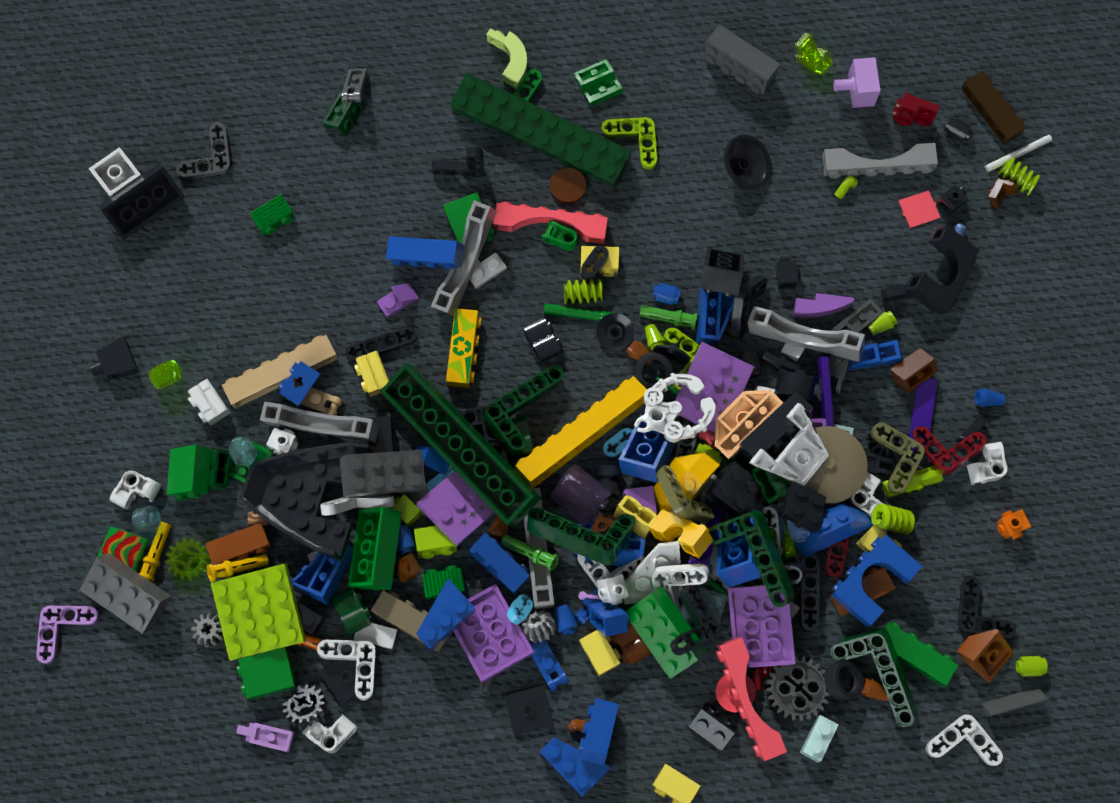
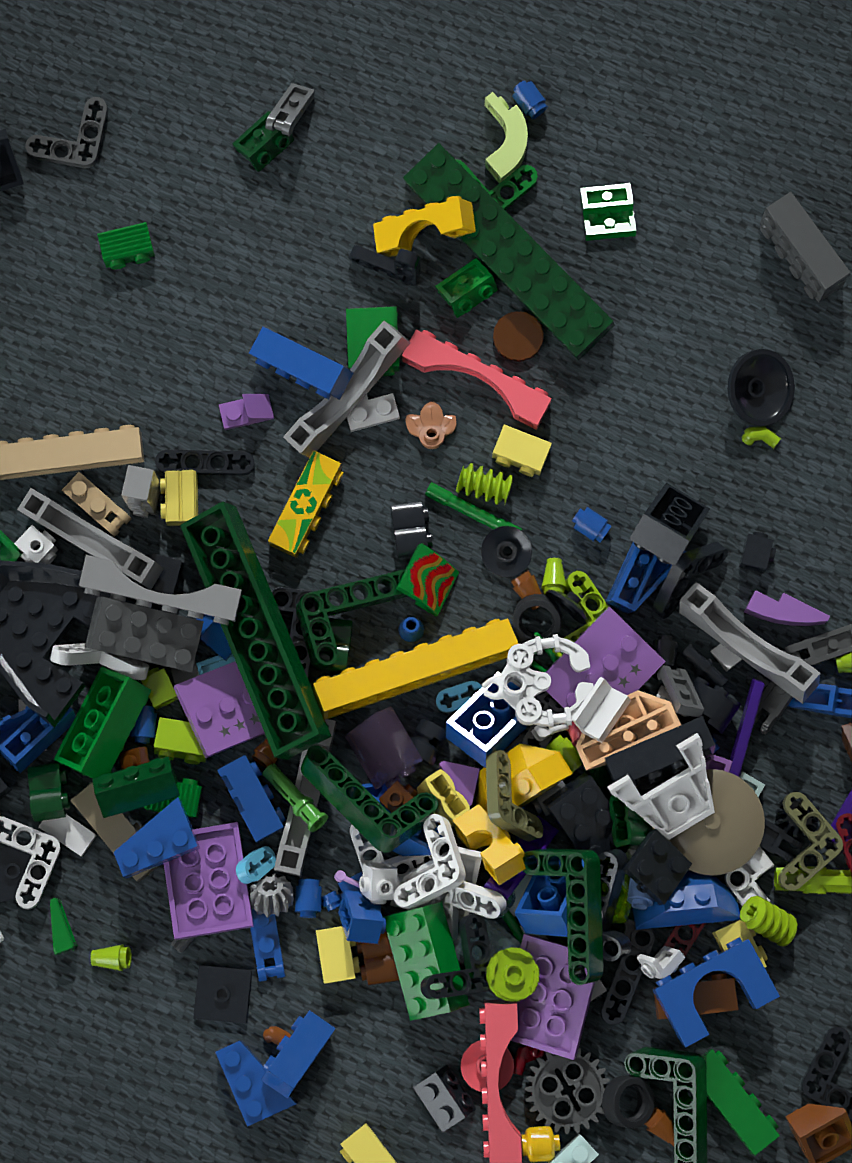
camera: 20 degrees right, 5 degrees up
(297, 394) = (74, 492): blue brick -> none
(341, 441) = (215, 601): none -> light grey arch
(344, 376) = (141, 491): none -> light grey brick
(398, 709) = (61, 931): none -> green slope
(415, 582) = (135, 787): none -> dark green brick
(440, 712) = (112, 957): none -> lime cone
(494, 116) = (451, 217): none -> yellow arch
(517, 26) = (529, 99): none -> blue brick
(521, 164) = (467, 287): none -> green bracket
(528, 263) = (431, 421): none -> nougat plate
(557, 234) = (479, 397): green piece -> none
(567, 369) = (428, 579): none -> slope
(568, 412) = (411, 635): none -> blue cone
(598, 265) = (508, 448): black beam -> none
(637, 130) = (634, 294): lime beam -> none
(654, 563) = (439, 872): none -> white beam
(678, 318) = (594, 561): bright green pin -> none
(687, 445) = (543, 732): none -> white hand
(723, 414) = (600, 710): none -> white panel
(731, 618) = (512, 974): none -> lime tile
(757, 194) = (760, 433): none -> lime arm
(773, 382) = (681, 691): none -> dark grey plate
(793, 733) = (539, 1144): none -> yellow head
(831, 575) = (663, 963): none -> white bracket

